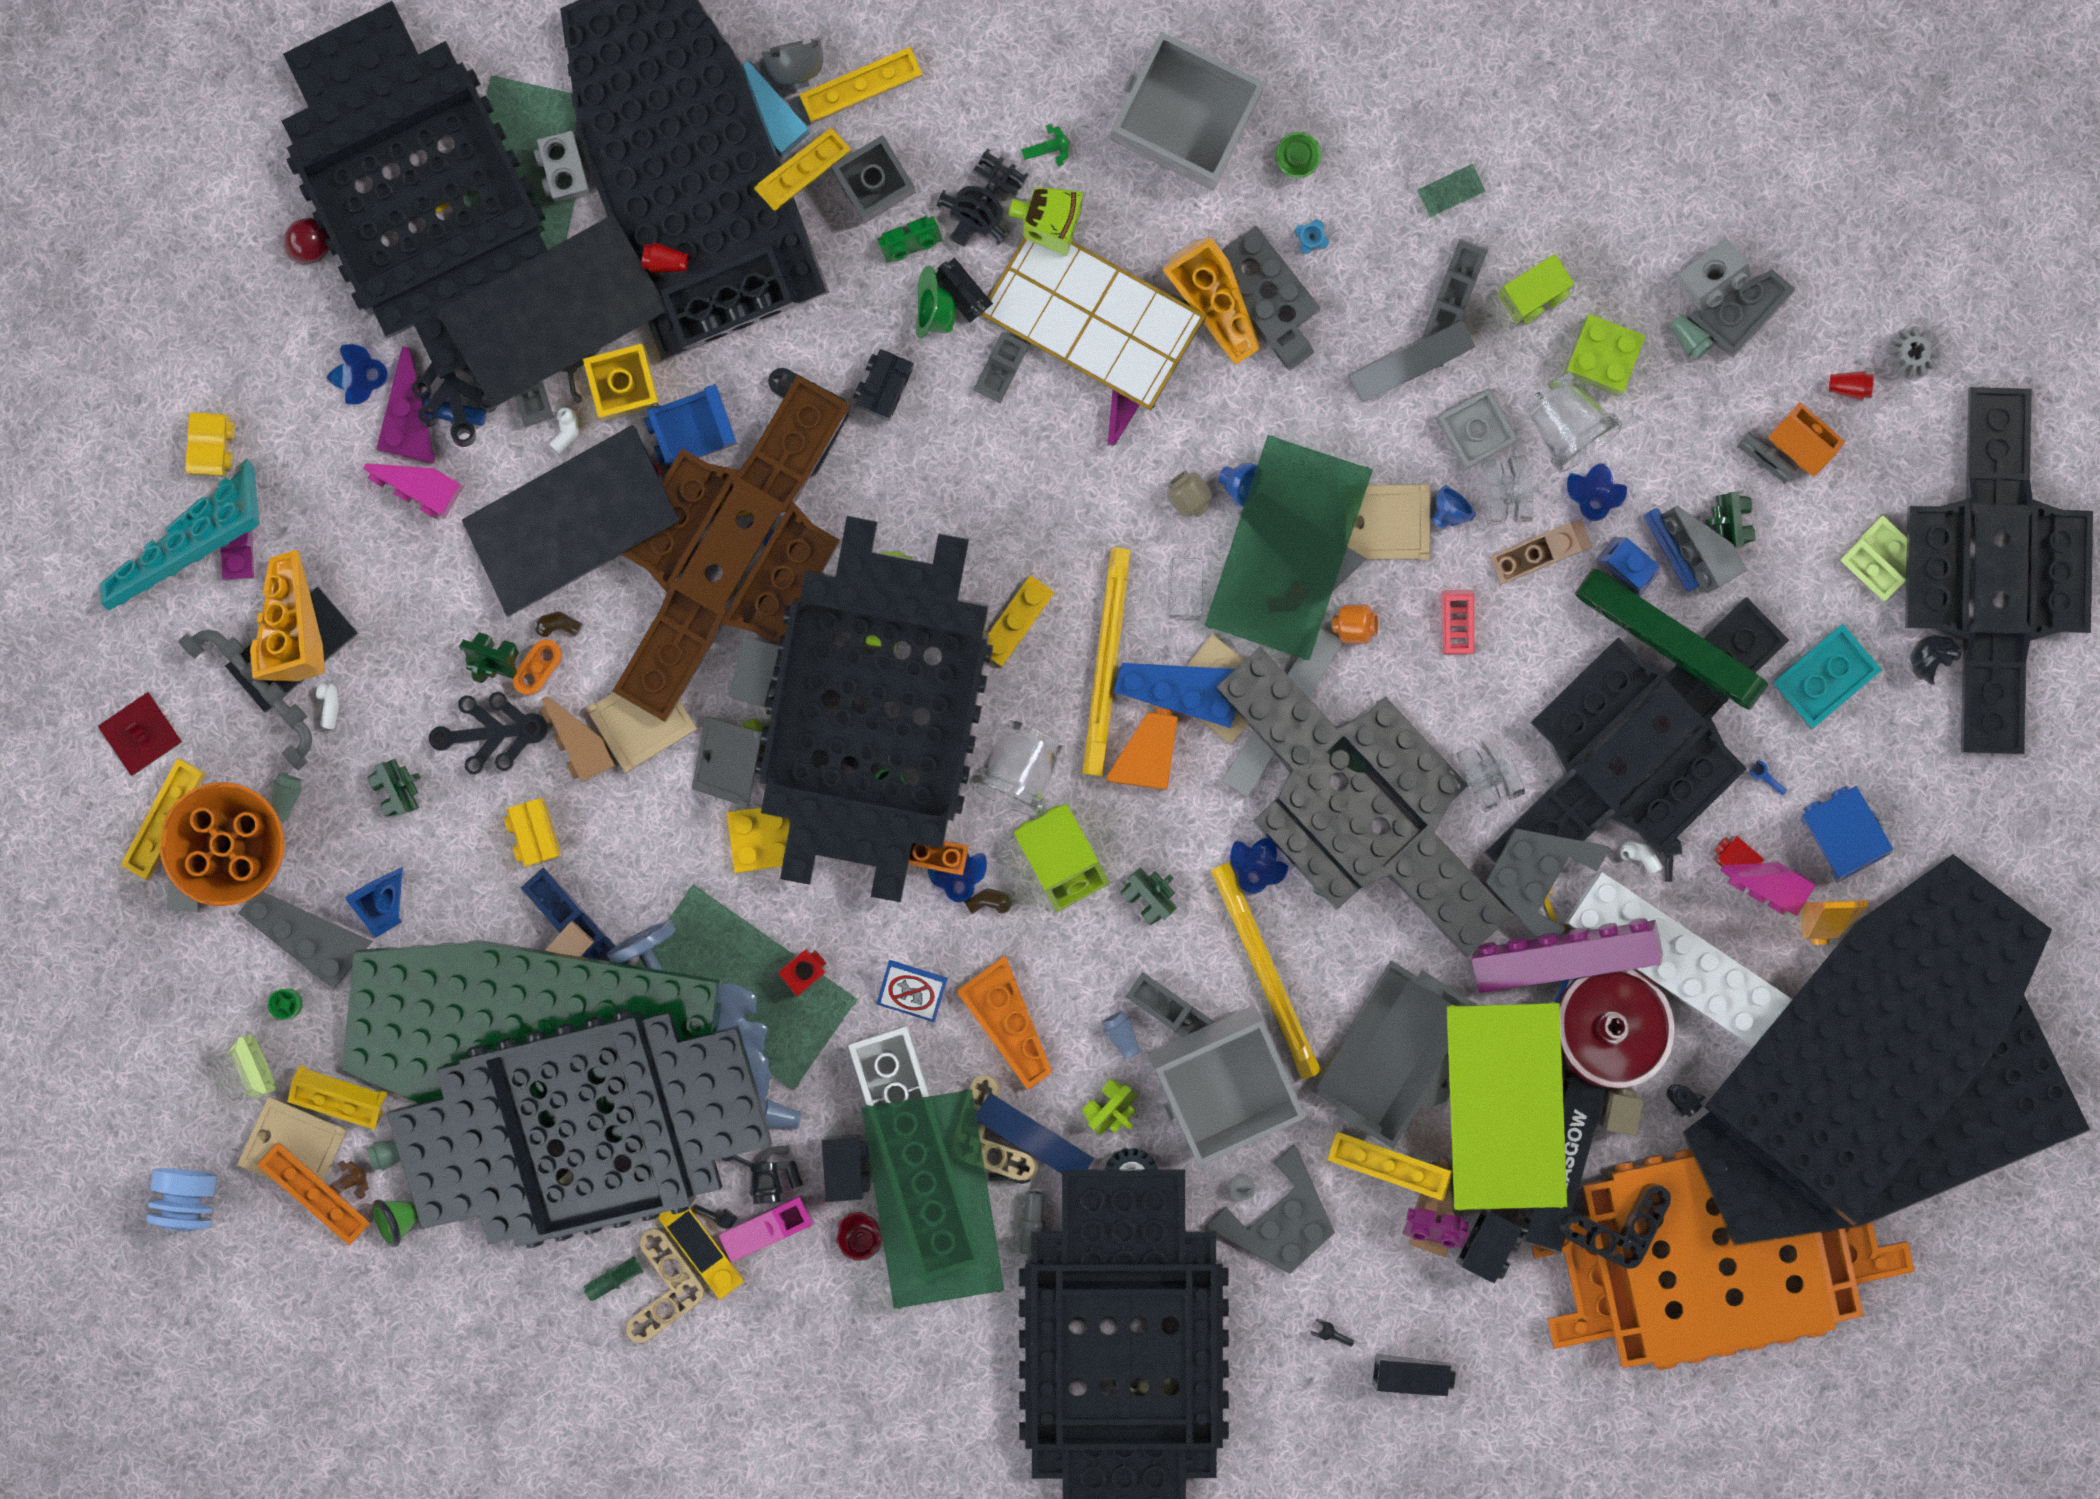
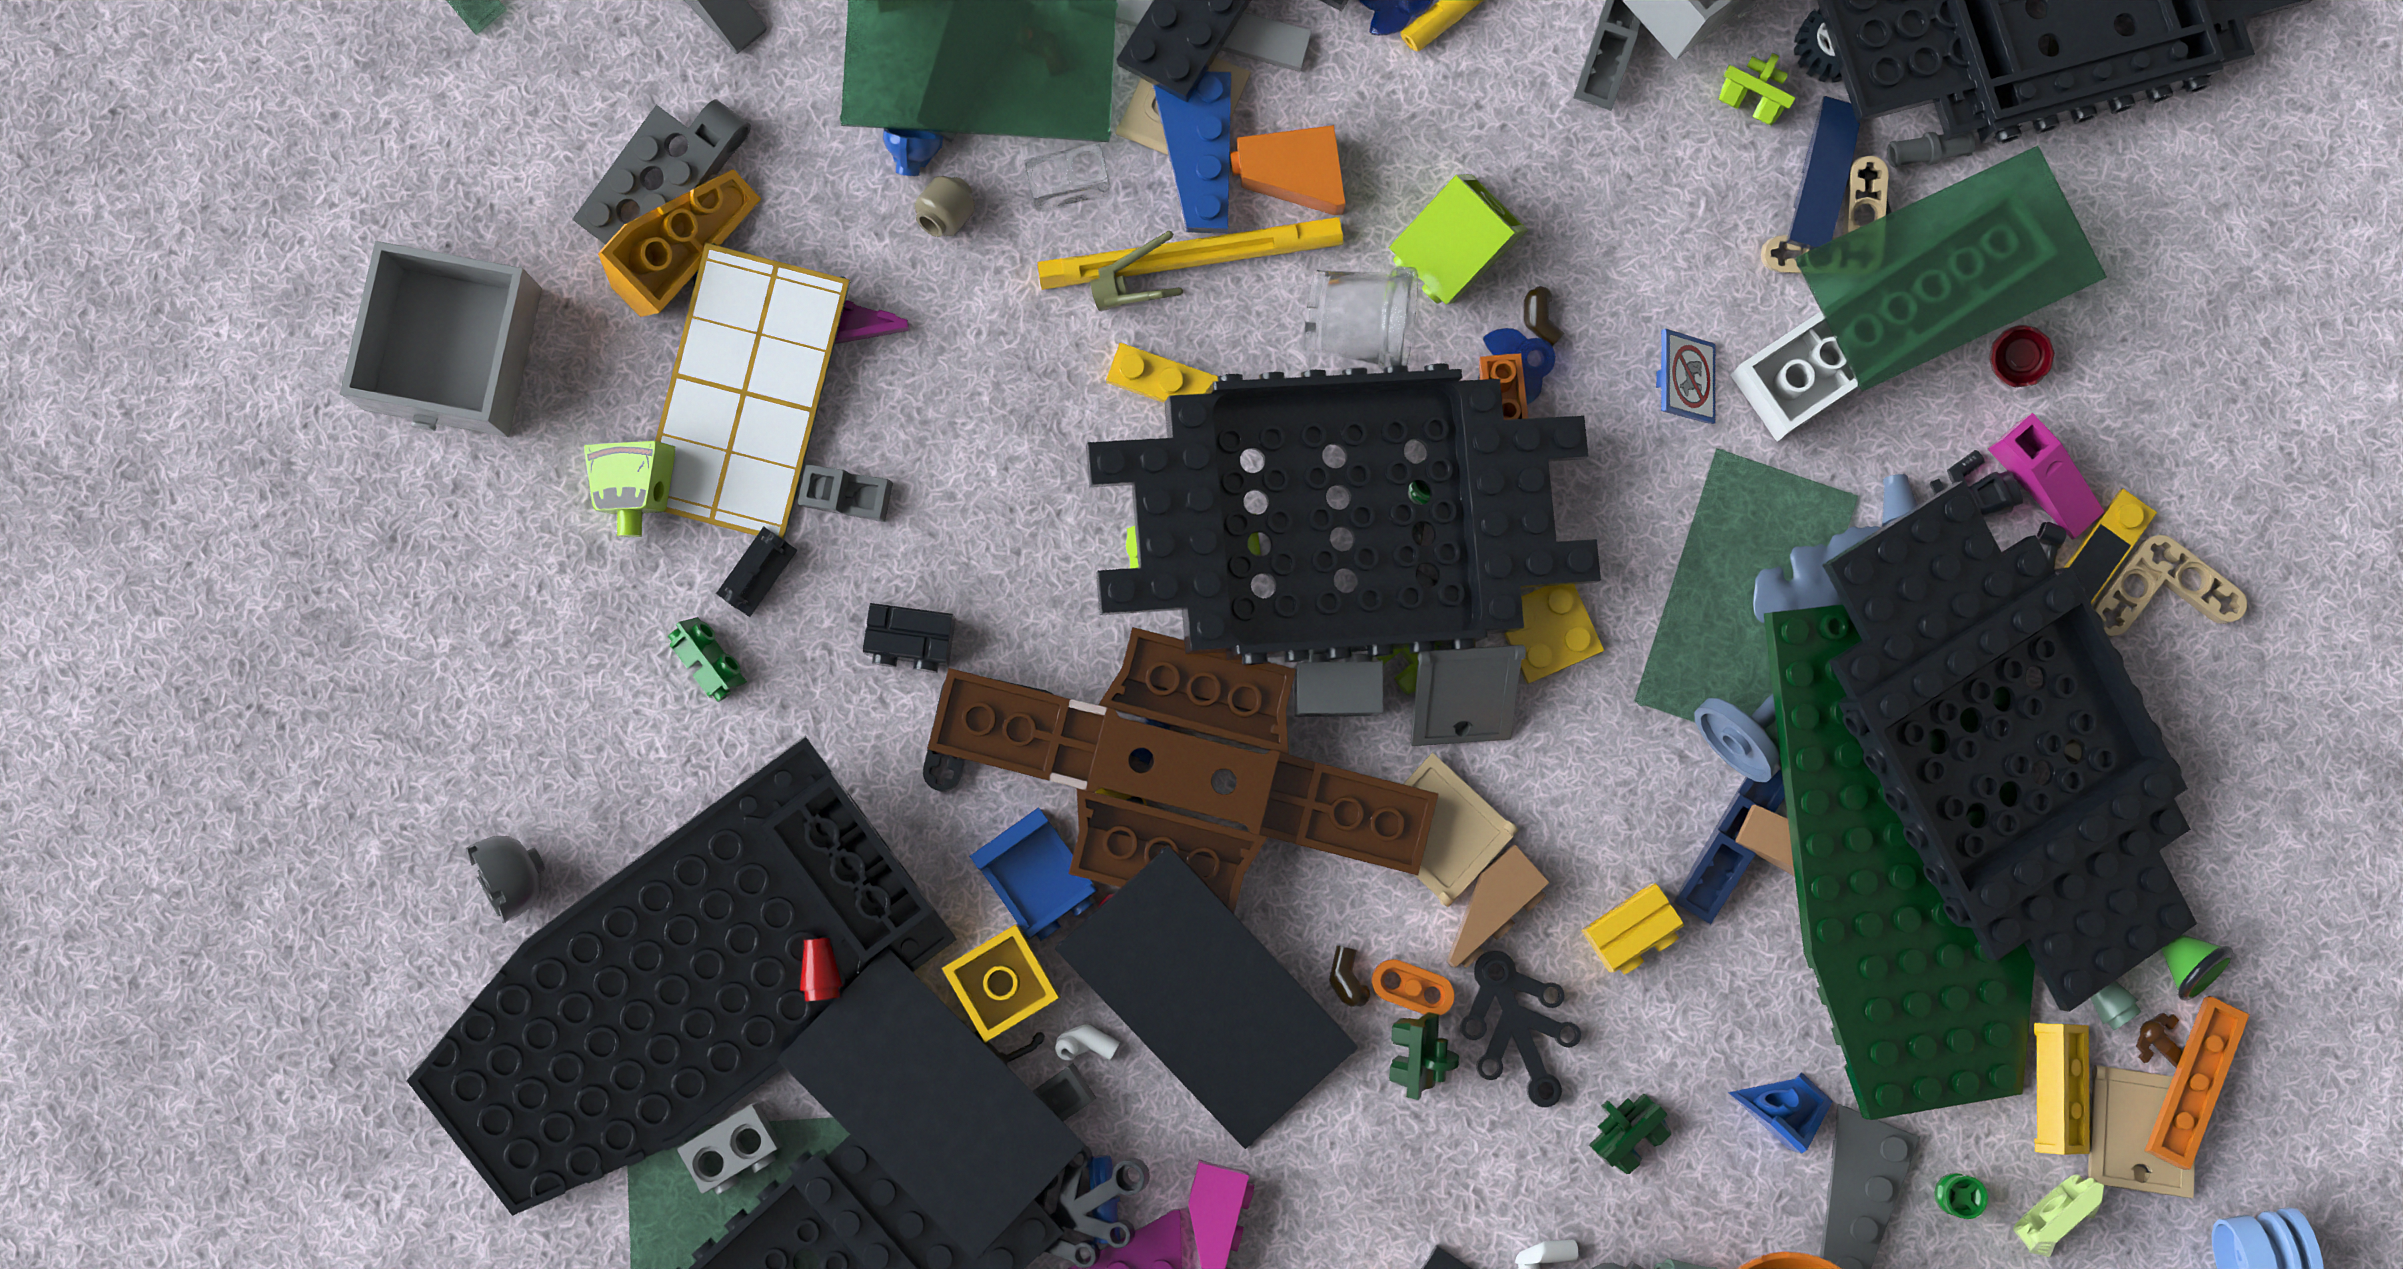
camera: 105 degrees left, 5 degrees down
(613, 1278) = (2174, 657): clear green axle -> none
(782, 123) = (591, 866): medium azure slope -> none
(790, 975) = (1724, 522): red brick -> none
(802, 169) = (649, 819): yellow plate -> none
(844, 1167) = (1943, 395): black brick -> none
(861, 85) = (517, 780): yellow plate -> none
(873, 179) = (638, 725): dark grey brick -> none
(935, 306) = (786, 600): green piece -> none
(967, 225) = (659, 586): black piece -> none
(1003, 1015) = (1679, 258): orange wing -> none
(1060, 143) = (529, 499): green piece -> none
(1090, 597) = (1113, 291): none -> olive plant
(1121, 1032) = (1656, 105): sand blue cone -> none
(1154, 891) = (1481, 101): dark green hips -> none
(1302, 148) = (456, 186): bright green hair -> none
(1316, 229) = (568, 135): dark azure plate -> none

